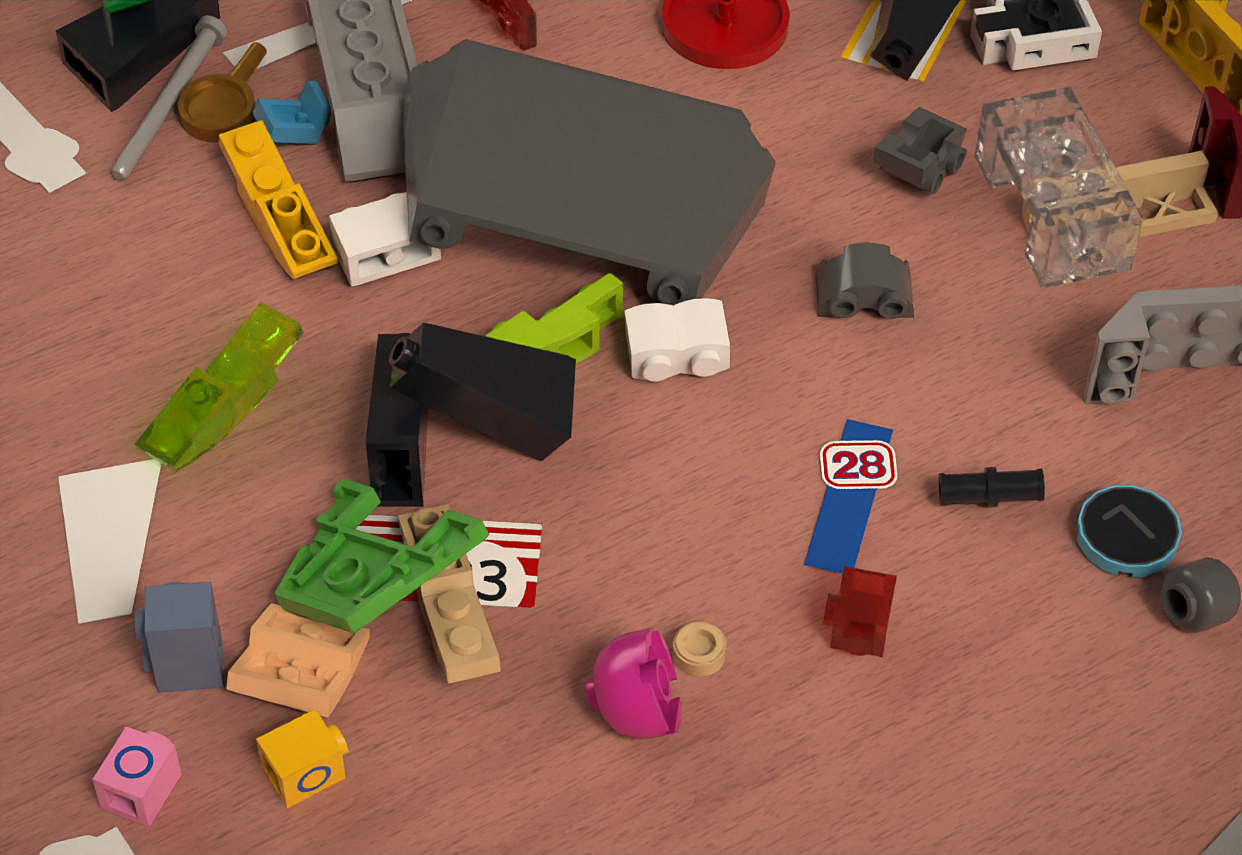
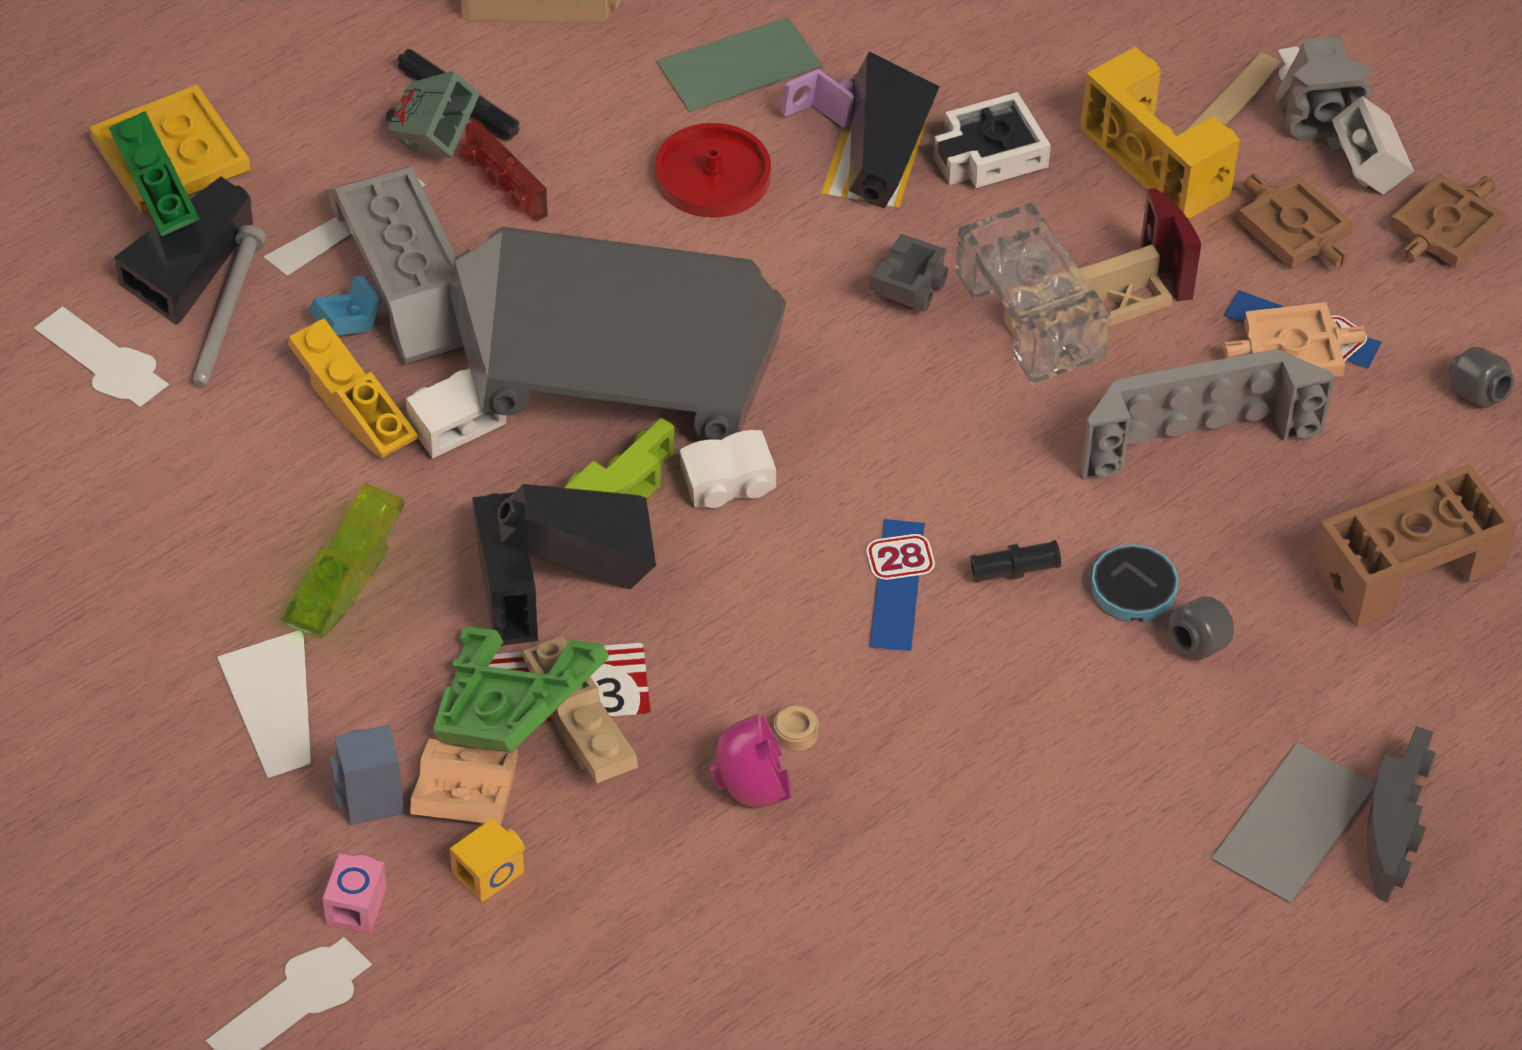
camera: 10 degrees left, 0 degrees up
(220, 100) = (276, 306): pearl gold piece -> none
(861, 611) = (925, 679): clear red brick -> none
(864, 279) = (879, 395): dark grey cylinder -> none

